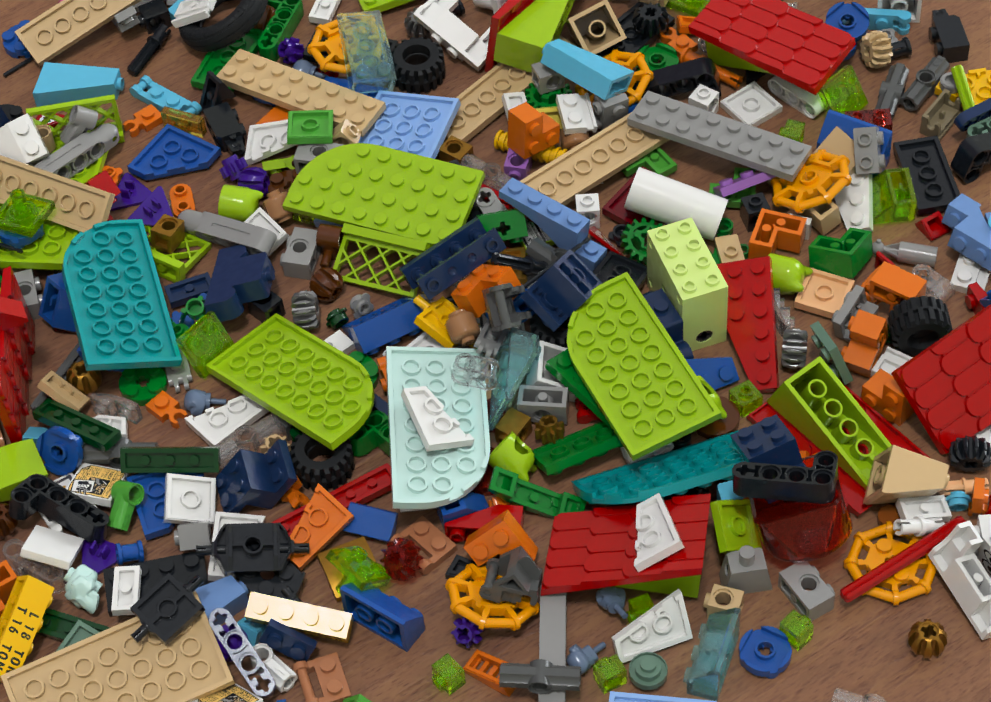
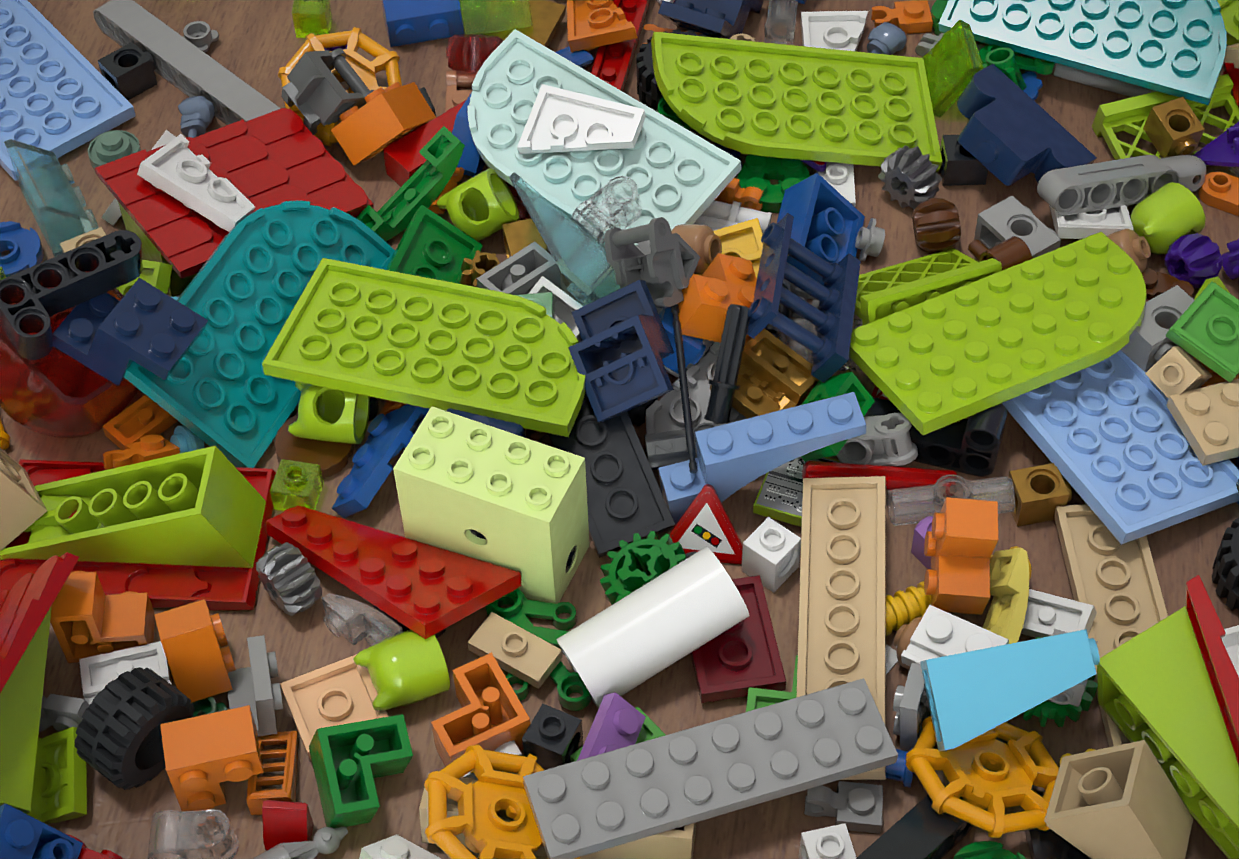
camera: 130 degrees right, 0 degrees up
(182, 291) = (1071, 109): dark blue plate -> none
(337, 318) = (873, 207): dark green plate -> none
(490, 678) = (267, 53): orange slope -> none
(540, 676) = (202, 44): dark grey piece -> none
(609, 673) = (150, 120): clear neon green plate -> none
(830, 352) = (228, 588): sand green plate -> none

